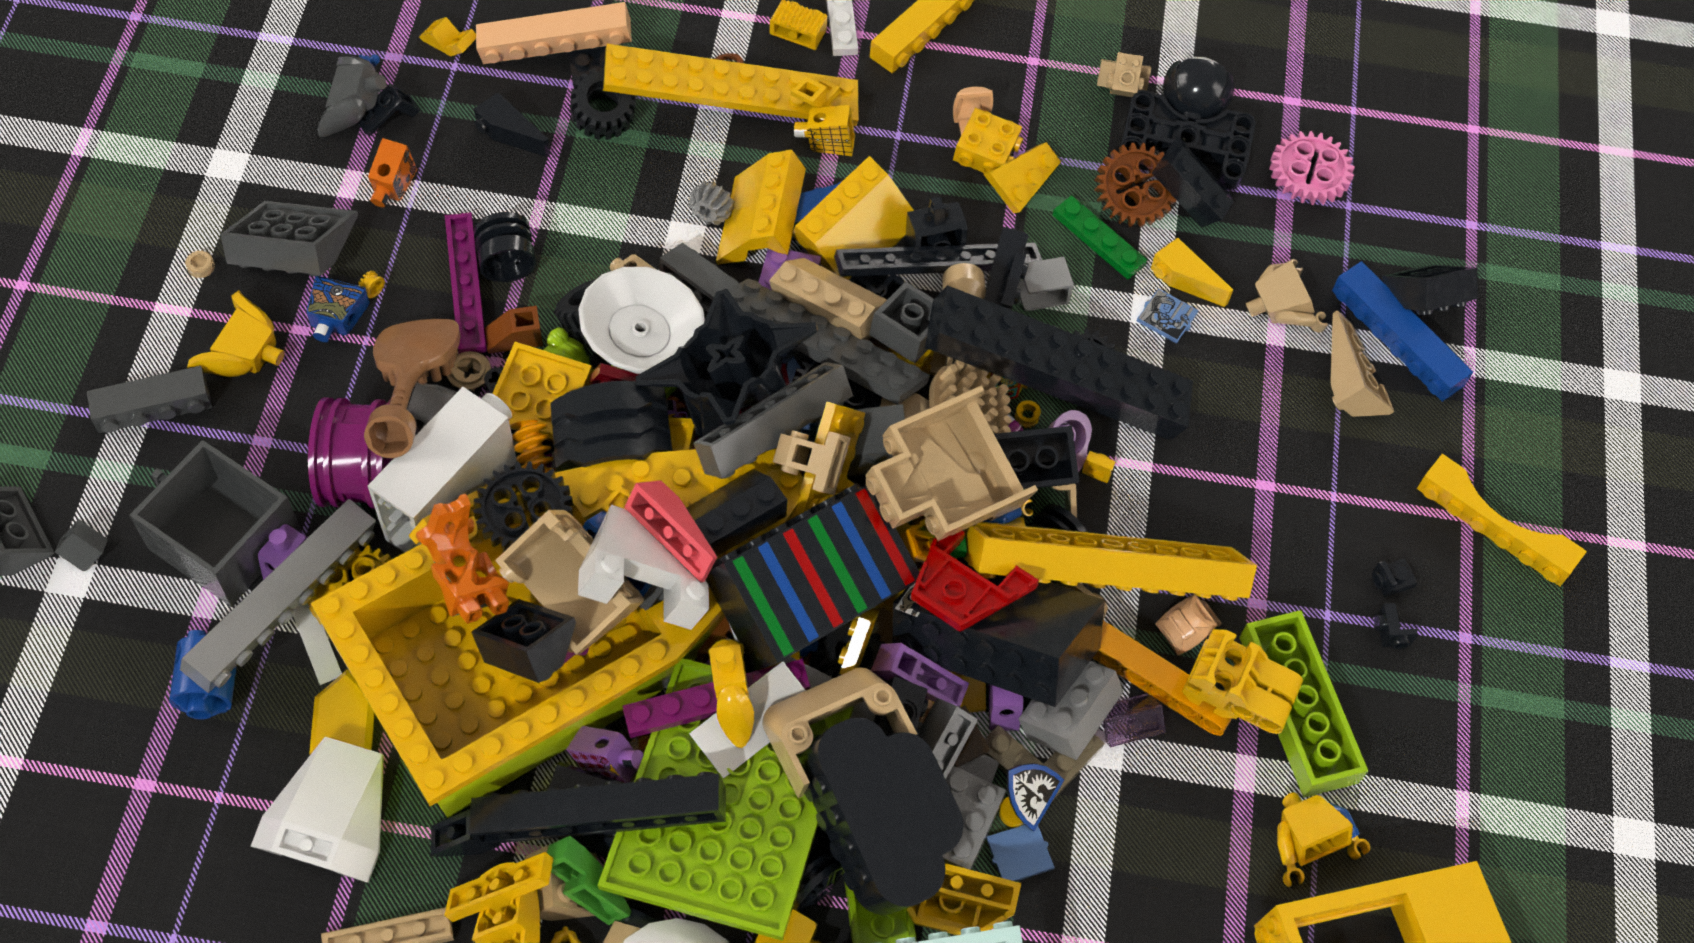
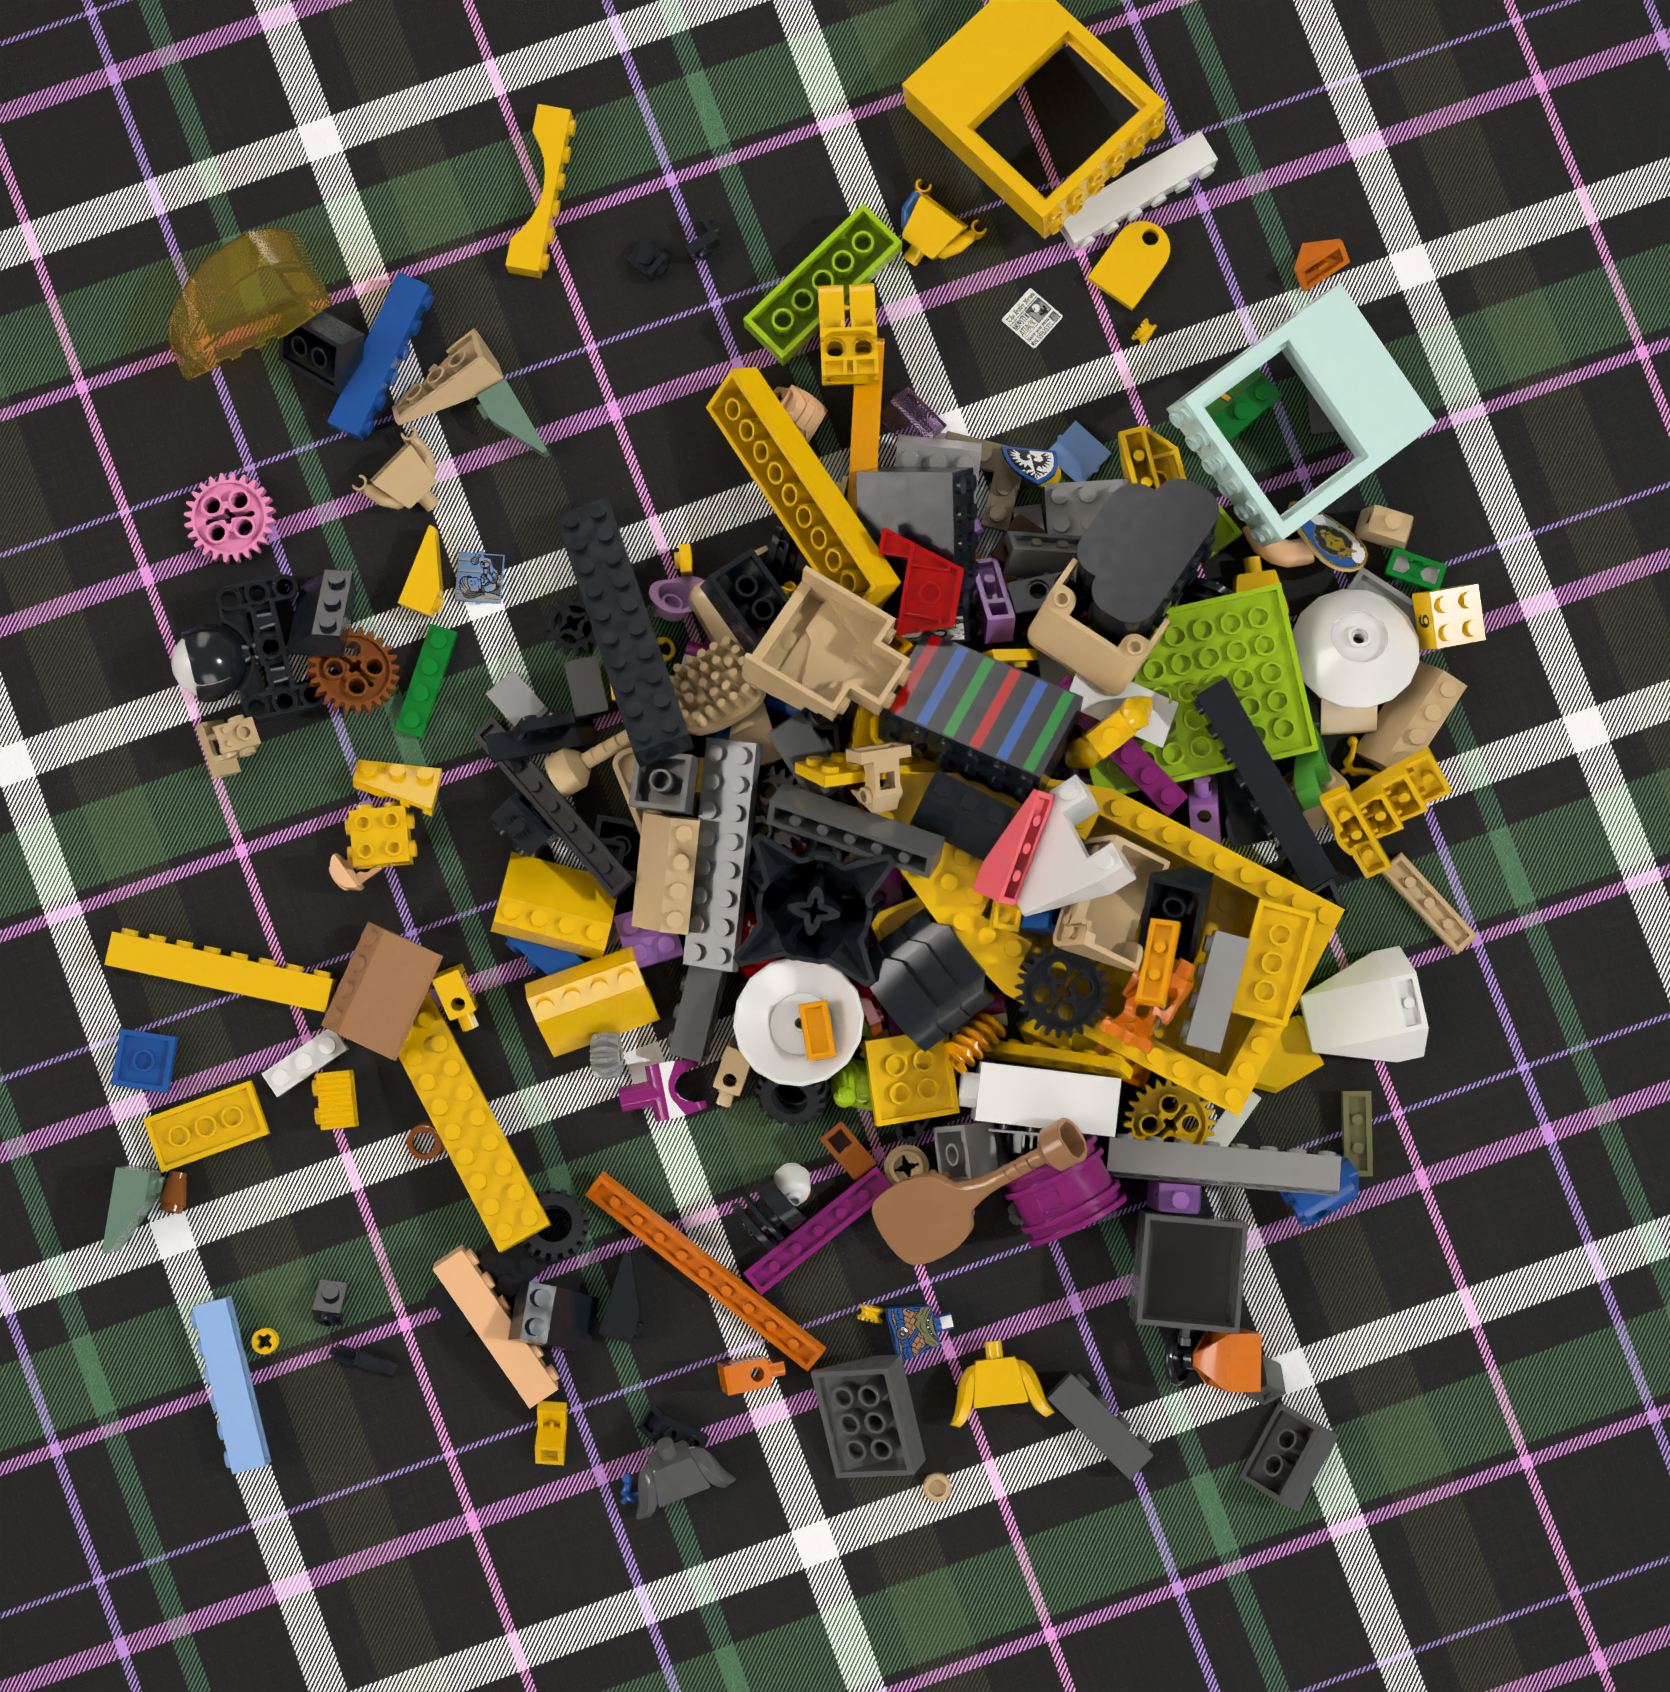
camera: 110 degrees left, 25 degrees up
(109, 504) = (1220, 1358): none -> orange piece
(228, 745) = (1357, 1130): none -> olive plate
(423, 699) = (1273, 962): none -> yellow plate
(432, 634) = (1215, 991): none -> light grey brick
(487, 191) = (705, 1271): none -> orange plate
(490, 584) = (1157, 962): none -> light orange tile
(515, 277) = (793, 1182): none -> white head
(530, 68) = (553, 1317): none -> black slope
(624, 328) = (817, 1030): none -> light orange tile
(655, 230) = (660, 1091): none -> magenta connector
(816, 93) = (435, 1024): yellow slope -> none
(865, 78) = (381, 991): none -> medium nougat slope
(1178, 884) = (1032, 318): none -> sticker
(1303, 398) = (508, 415): none -> sand green slope
(1503, 250) = (244, 296): none -> clear yellow windscreen

